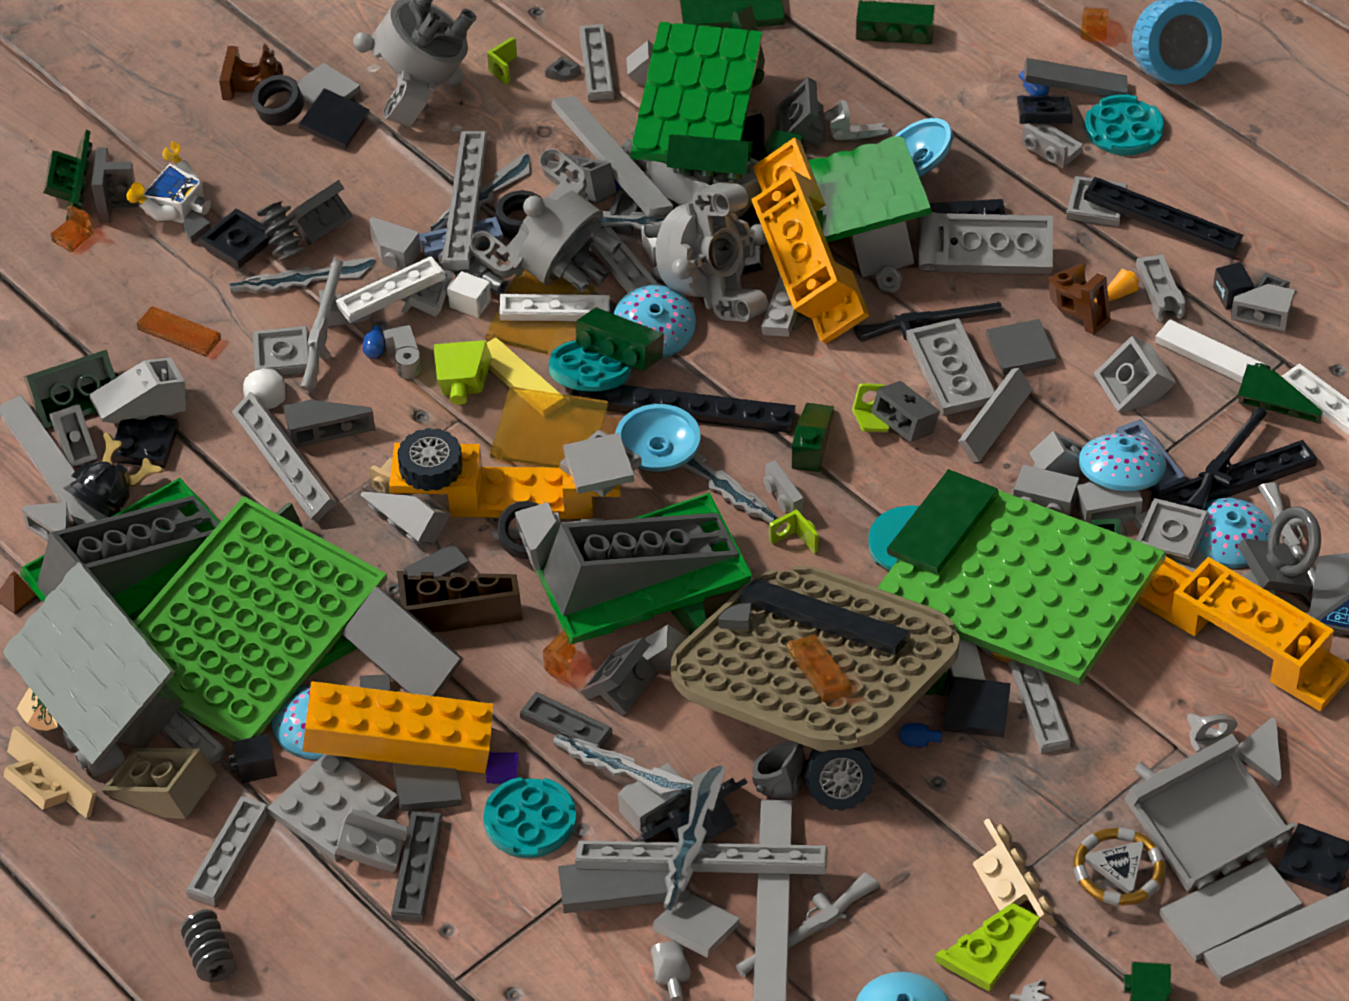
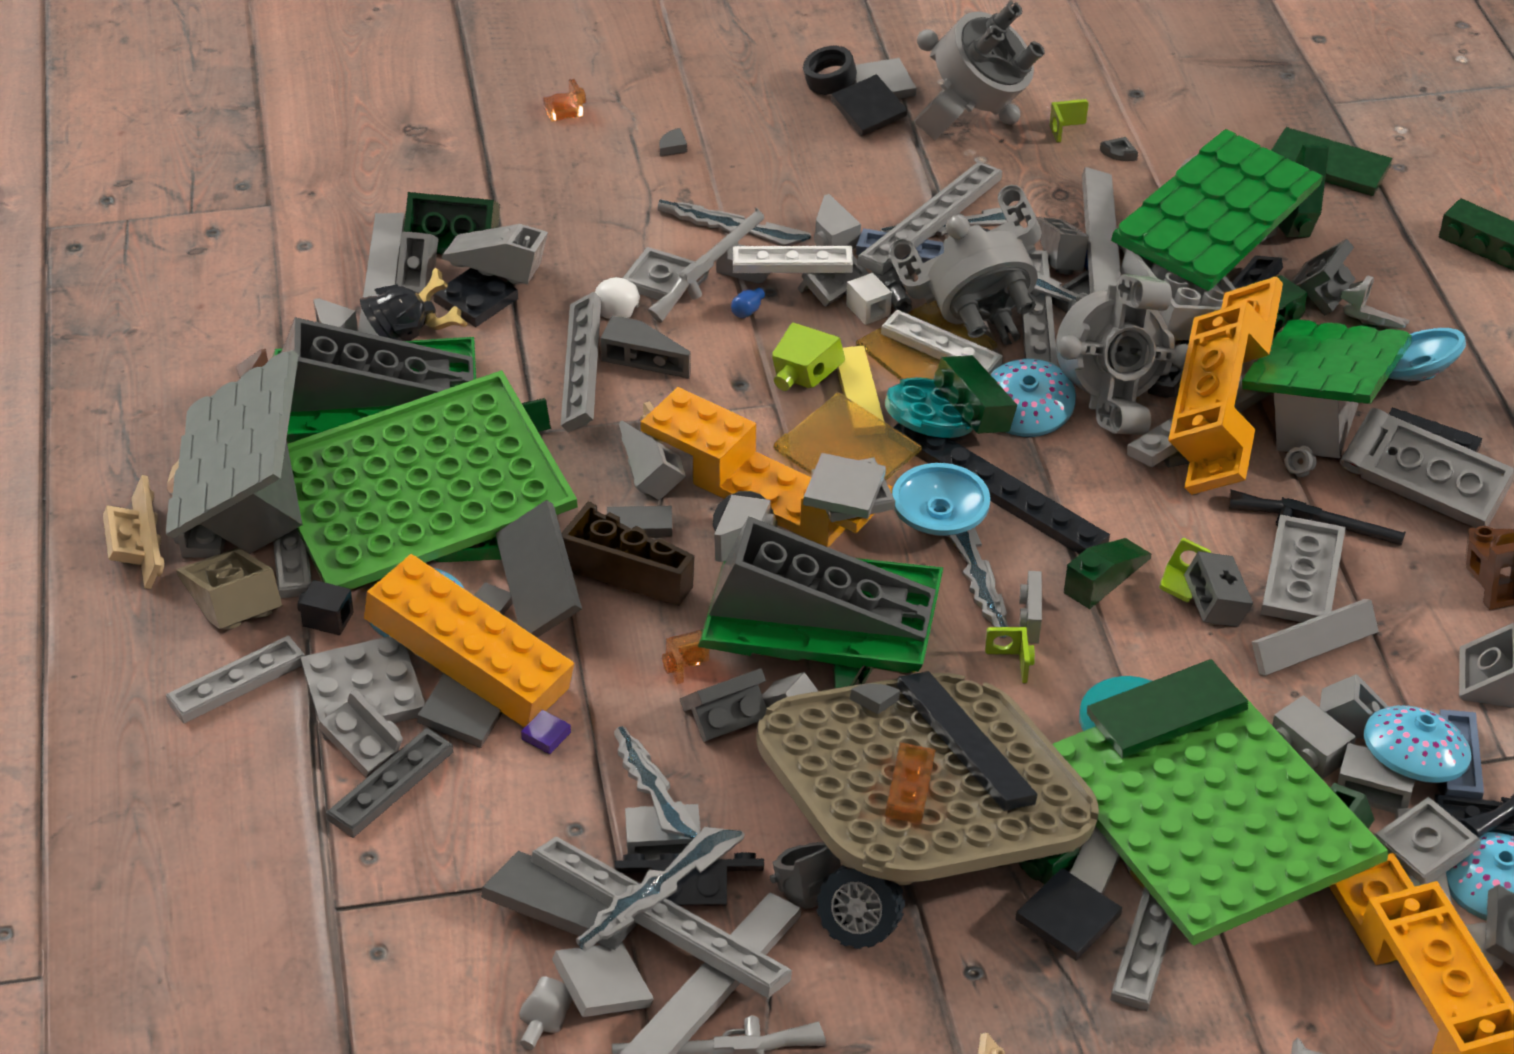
camera: 30 degrees right, 5 degrees down
(66, 174) = (596, 56): dark green bracket -> none
(111, 184) = (620, 77): dark grey bracket -> none
(173, 191) = (671, 106): torso -> none
(179, 331) = (585, 221): clear orange tile -> none
(207, 946) = (135, 752): dark grey piece -> none
(236, 238) = (699, 166): black plate -> none
(245, 76) = (802, 41): reddish brown tile -> none
(281, 231) = (736, 172): dark grey piece -> none
(321, 213) = (787, 173): dark grey bracket -> none
(403, 344) = (768, 321): light grey leg -> none
(430, 459) = (690, 411): black wheel -> none
(529, 817) = (534, 791): teal tile -> none
(564, 720) = (642, 719): dark grey tile -> none
(596, 62) = (1157, 156): light grey tile -> none
(709, 155) = (1183, 263): dark green brick -> none
(918, 735) = (987, 912): blue cylinder -> none
(1021, 346) = (1398, 585): dark grey tile -> none

